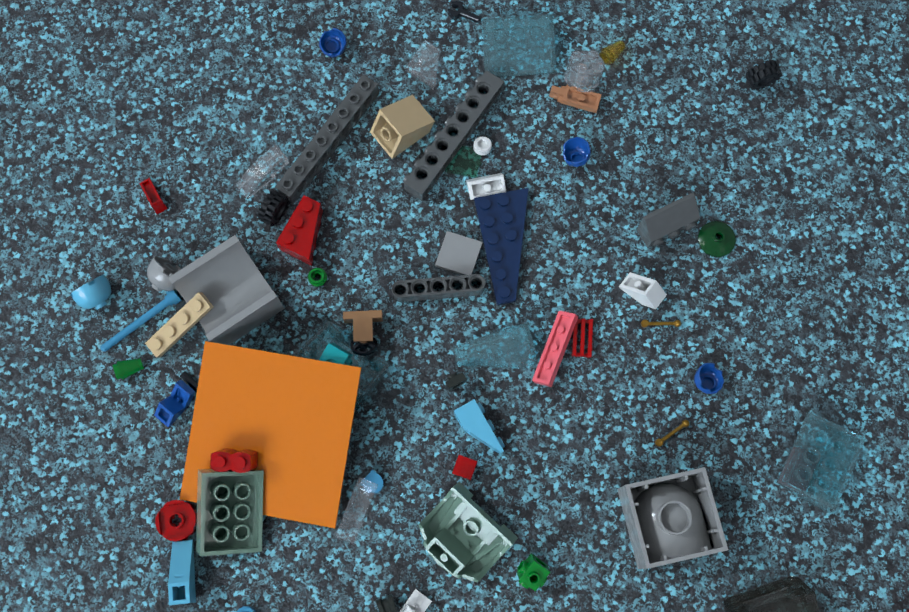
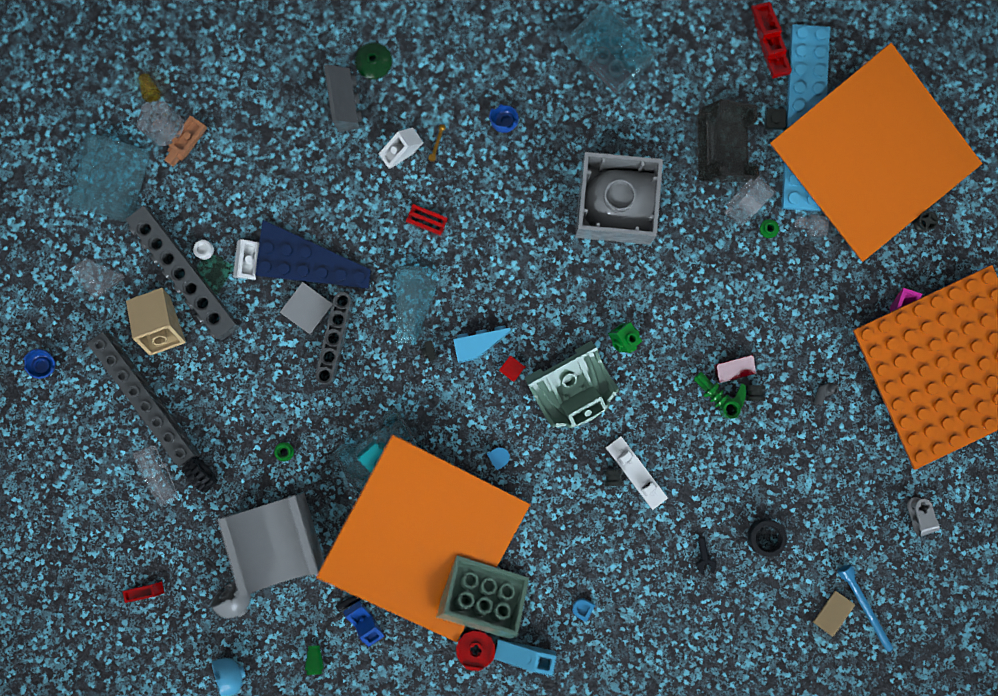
camera: 70 degrees left, 10 degrees up
(170, 299) = (258, 601): dark azure piece -> none
(179, 325) = (288, 599): tan plate -> none
(234, 460) = (437, 584): red brick -> none
(302, 231) = (232, 453): red wedge -> none
(356, 511) = (520, 479): clear slope -> none
(363, 329) = (352, 422): medium nougat piece -> none
(461, 12) = (51, 231): black bar -> none
(555, 348) = (429, 248): coral plate -> none
(576, 151) = (242, 160): blue hair -> none
(659, 442) = (545, 185): pearl gold hinge -> none

